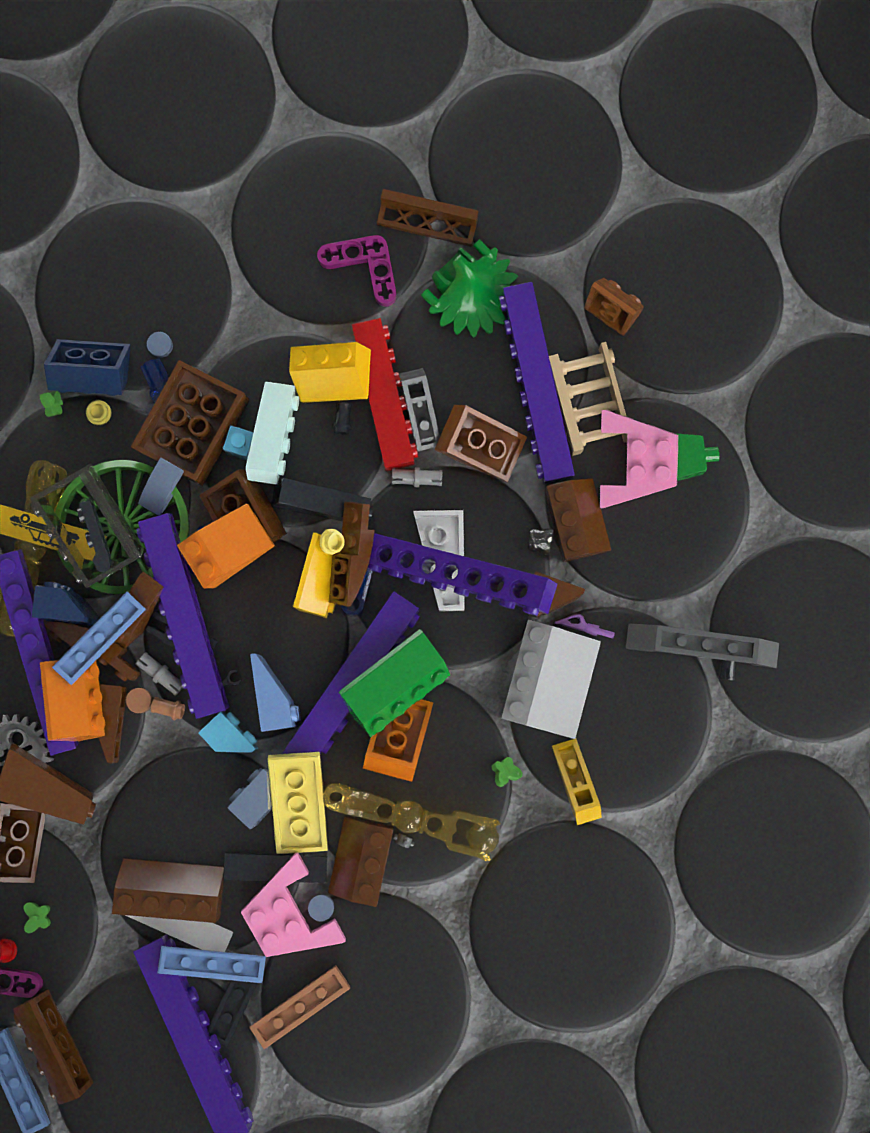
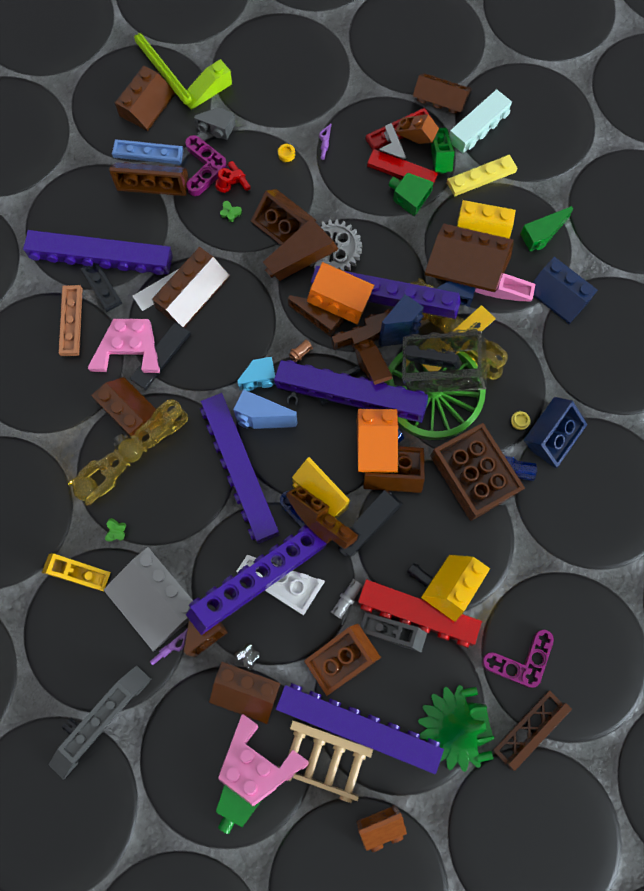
camera: 120 degrees right, 10 degrees down
(51, 403) = (543, 394): bright green piece -> none
(98, 638) = (366, 328): medium blue tile -> none
(139, 700) = (317, 338): nougat tile -> none
(159, 344) = (545, 486): sand blue tile -> none
(160, 486) = (444, 424): sand blue slope -> none
(160, 673) = (325, 358): light grey pin -> none
(211, 964) = (130, 284): medium blue tile -> none
(238, 443) = (443, 495): medium azure brick -> none
(254, 801) = (208, 365): sand blue slope -> none
(271, 433) = (437, 518): light aqua brick -> none
(297, 802) = (190, 389): light yellow tile -> none
(321, 907) = (118, 367): sand blue tile -> none
(331, 541) = (336, 508): light yellow plate -> none
(394, 683) = (217, 492): green slope -> none
(398, 745) = (186, 477): orange slope -> none

